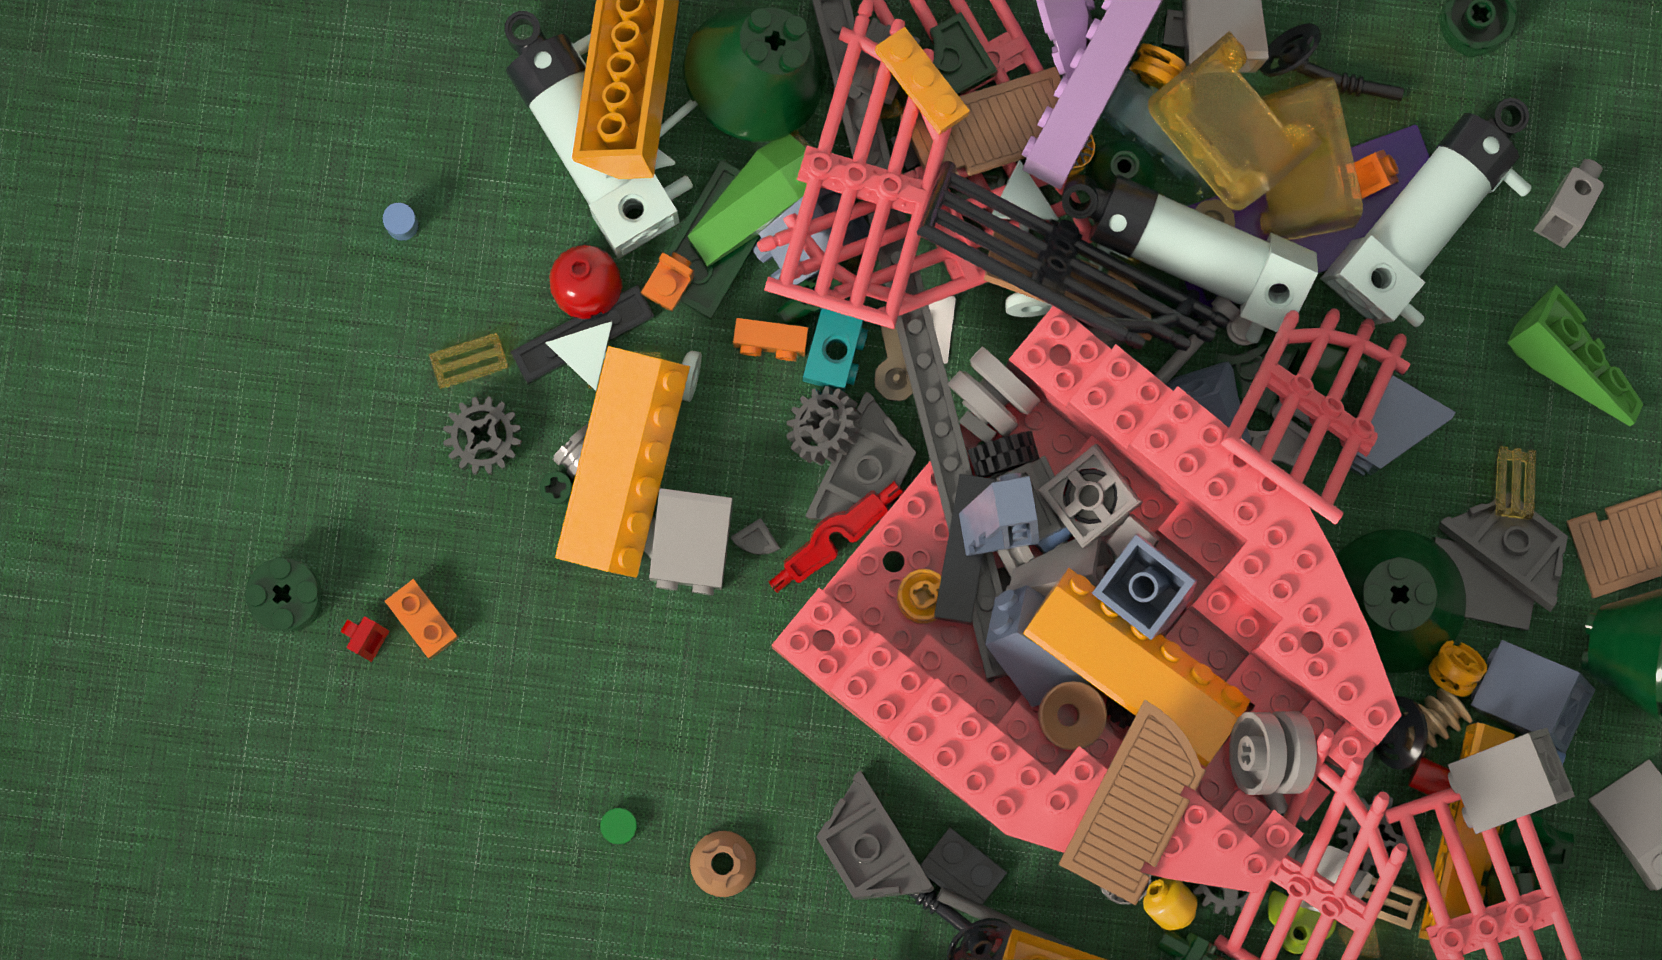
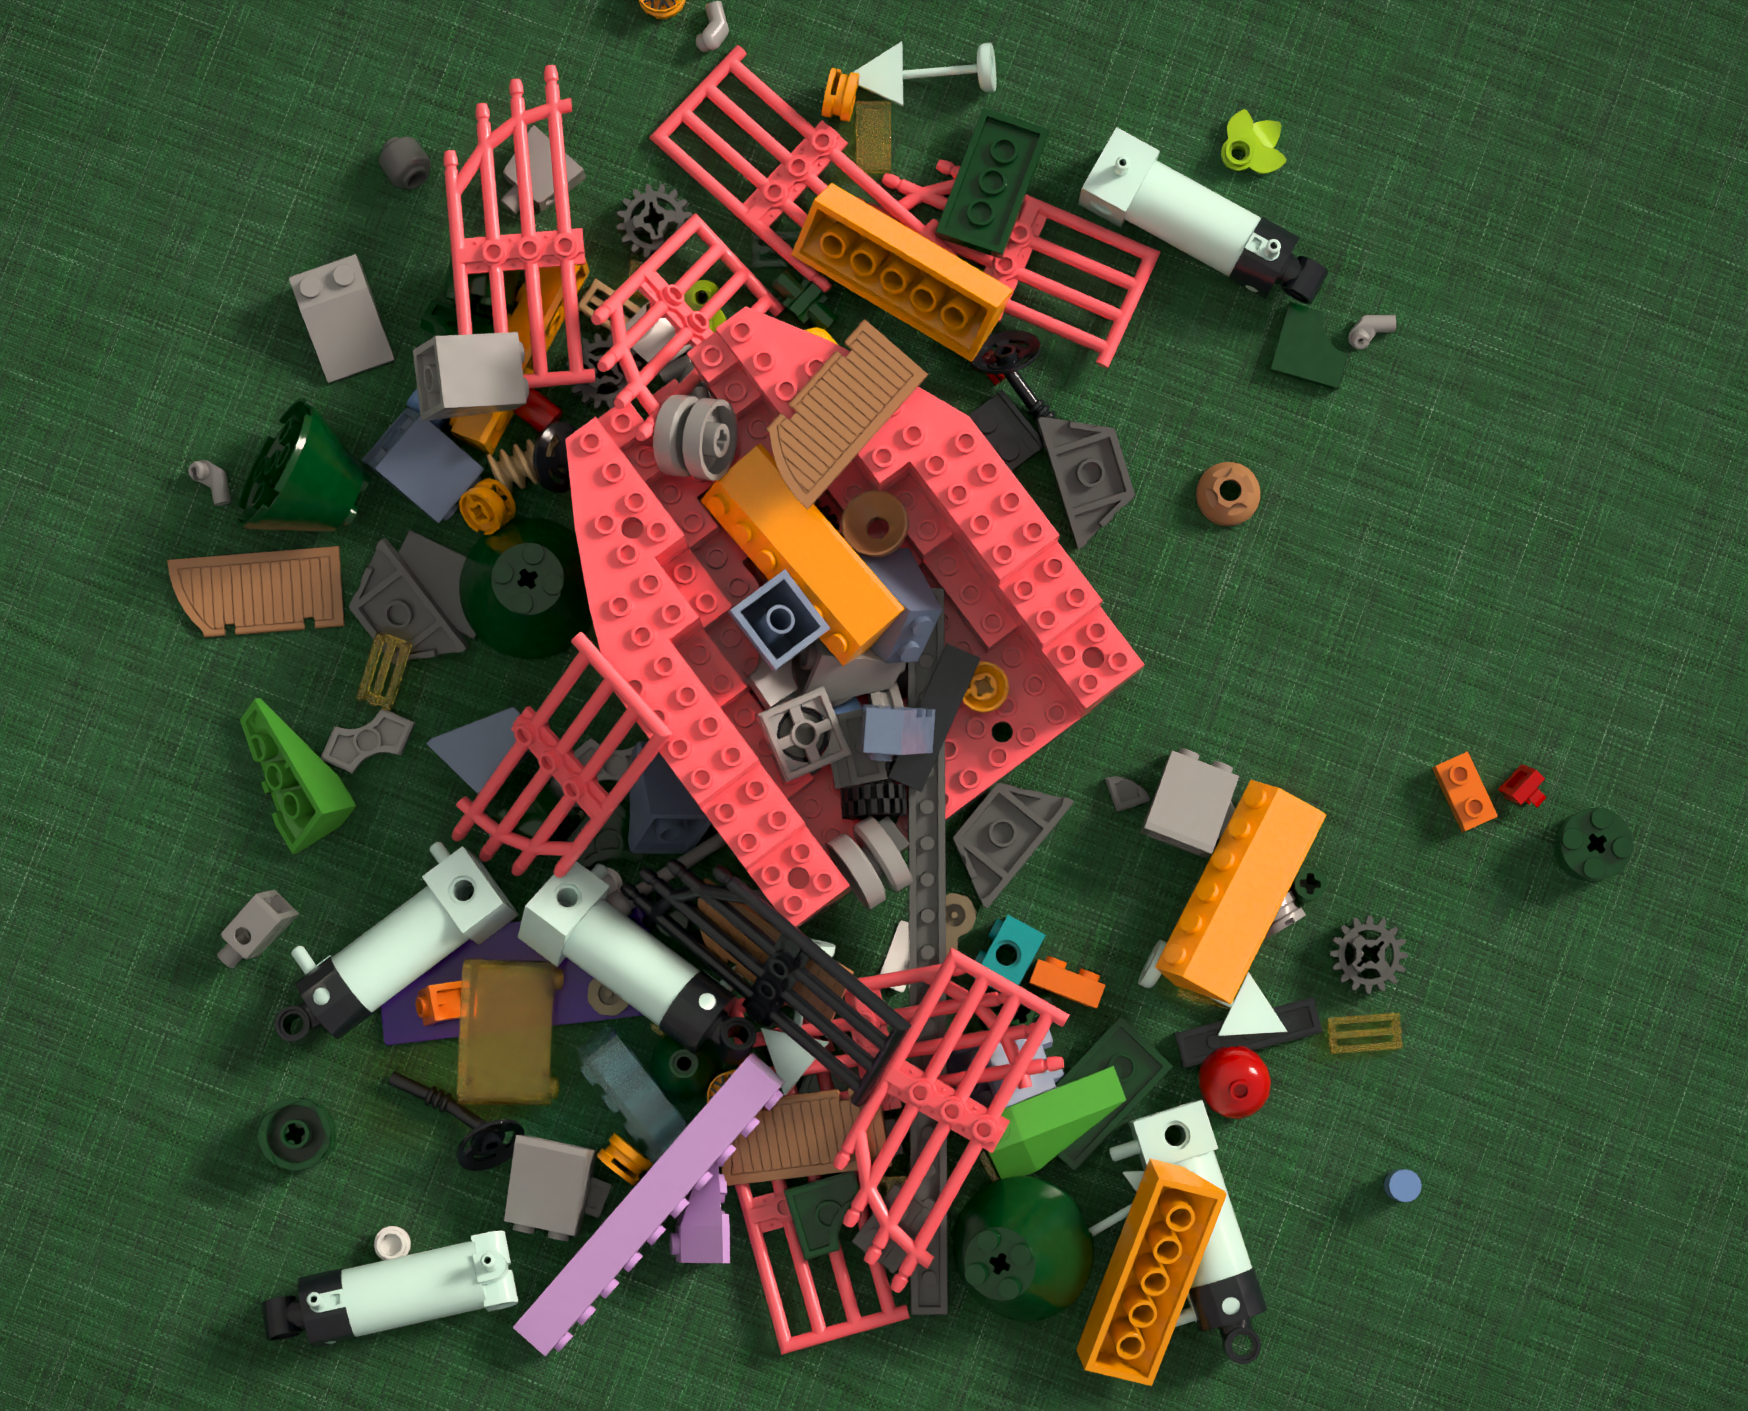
camera: 165 degrees left, 0 degrees up
(618, 826) = (1319, 552): green tile -> none
(669, 280) = (1154, 1060): orange bracket -> none
(824, 425) = (1035, 883): dark grey gear -> none
(850, 523) = (1033, 783): red piece -> none
(922, 80) = (862, 1193): light orange plate -> none
(983, 912) = (982, 379): dark grey bar -> none
(1228, 126) = (571, 1072): clear yellow windscreen -> none
(1498, 422) = (353, 746): none -> light grey tile

